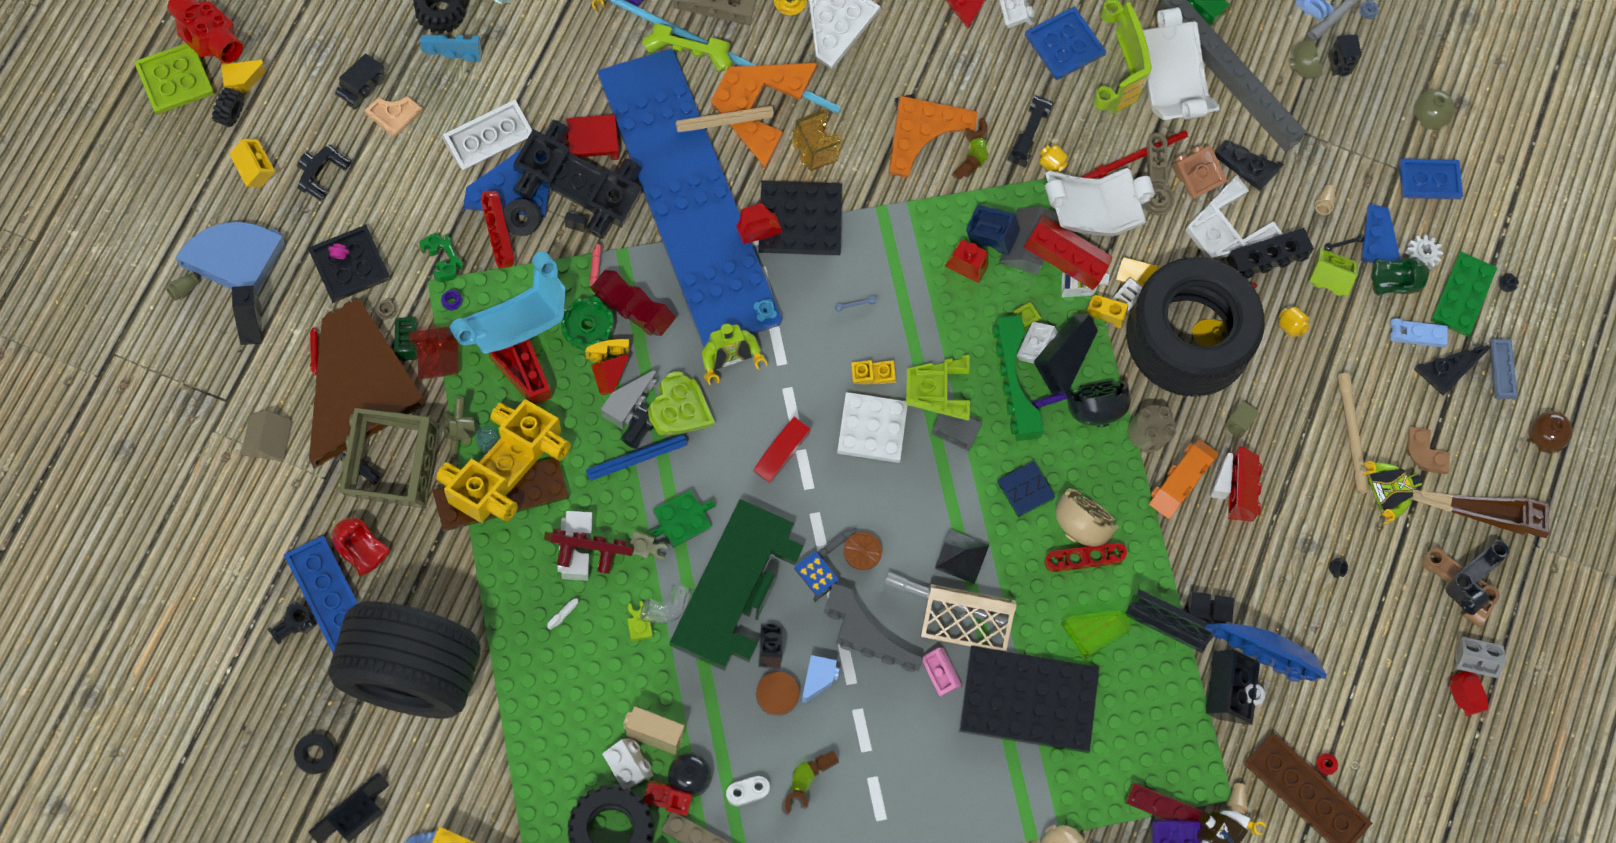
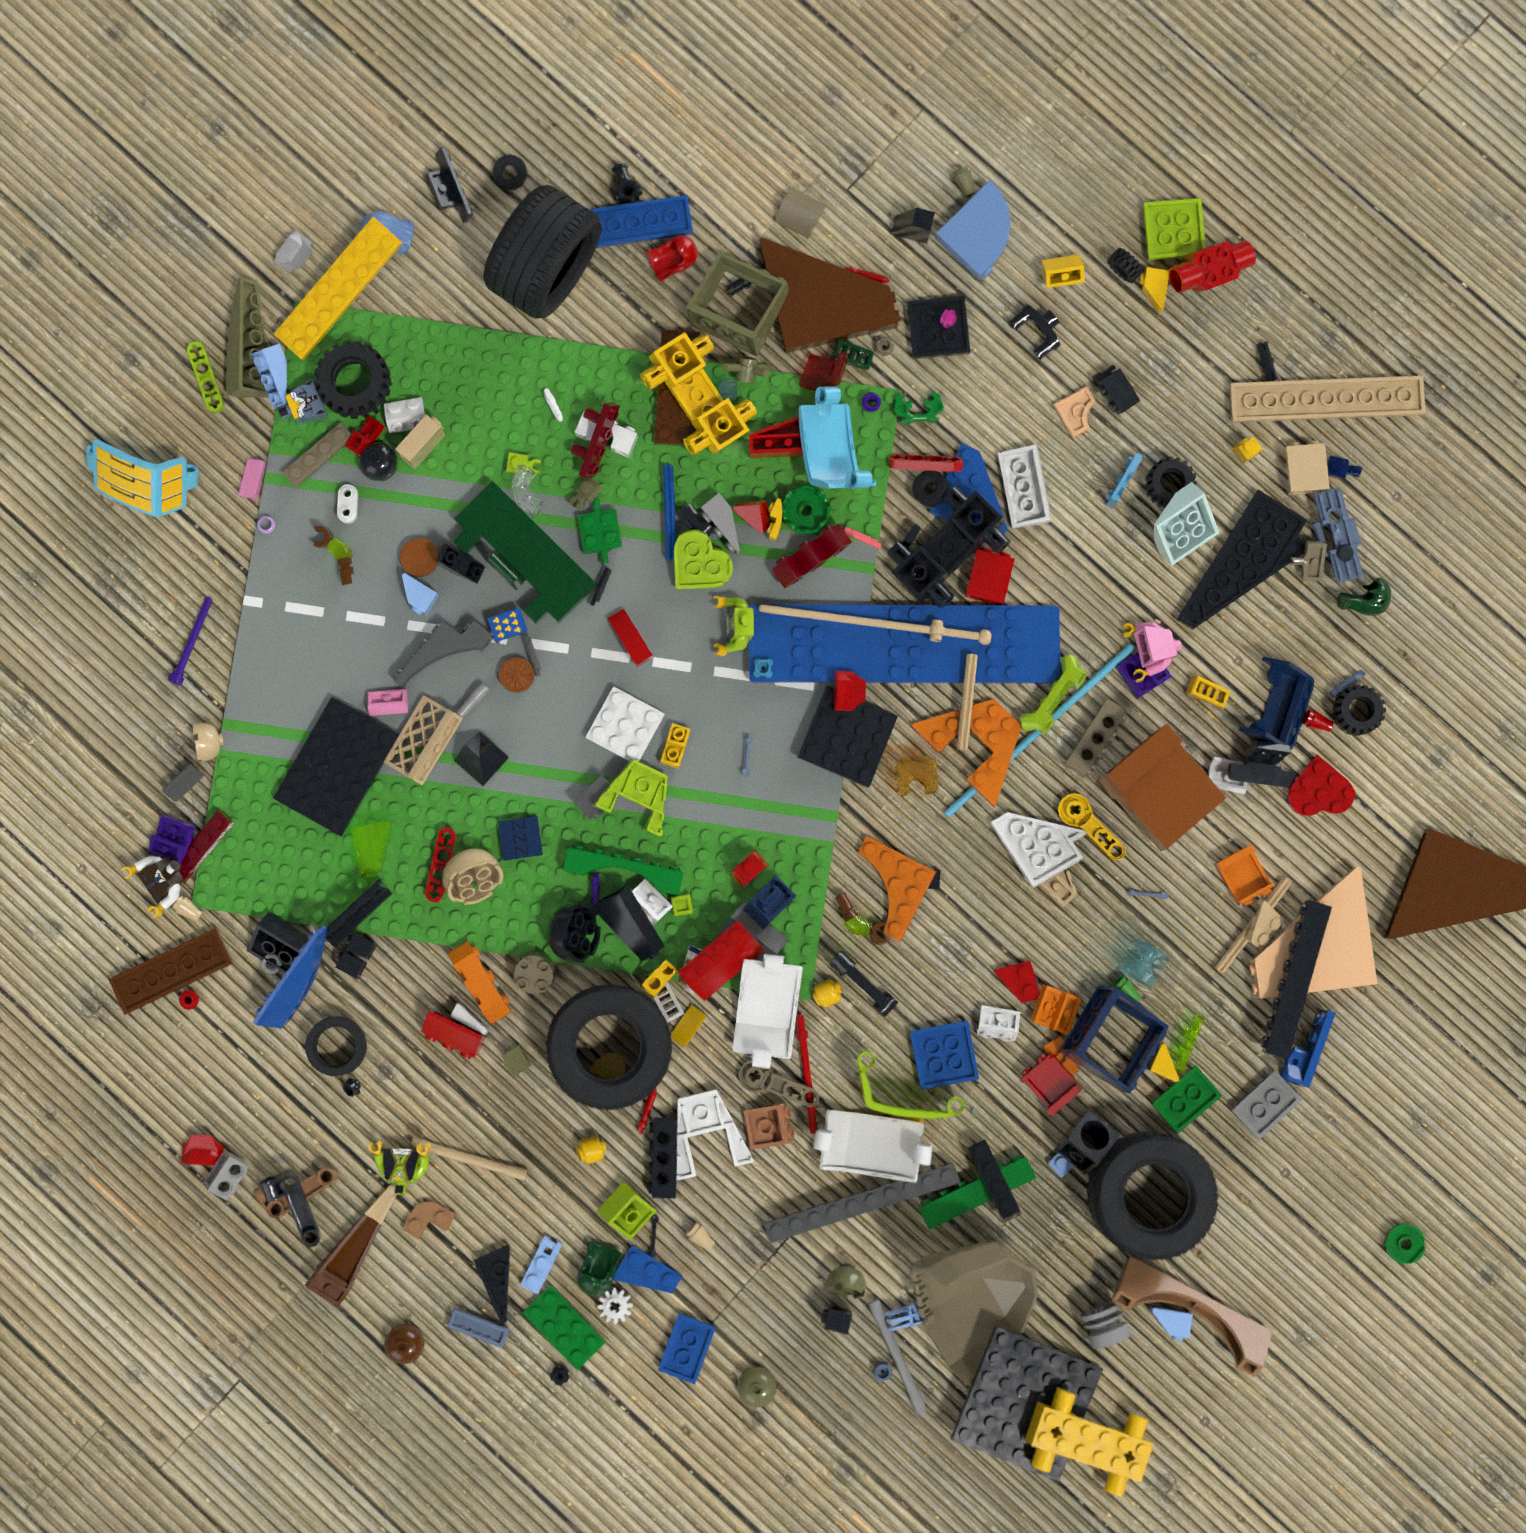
camera: 120 degrees right, 15 degrees up
(666, 165) = (935, 630): none -> tan bar
(735, 498) = (601, 586): none -> black wheel
(1250, 167) = (760, 1177): black wing -> none
(1324, 578) = (313, 1037): none -> black tyre

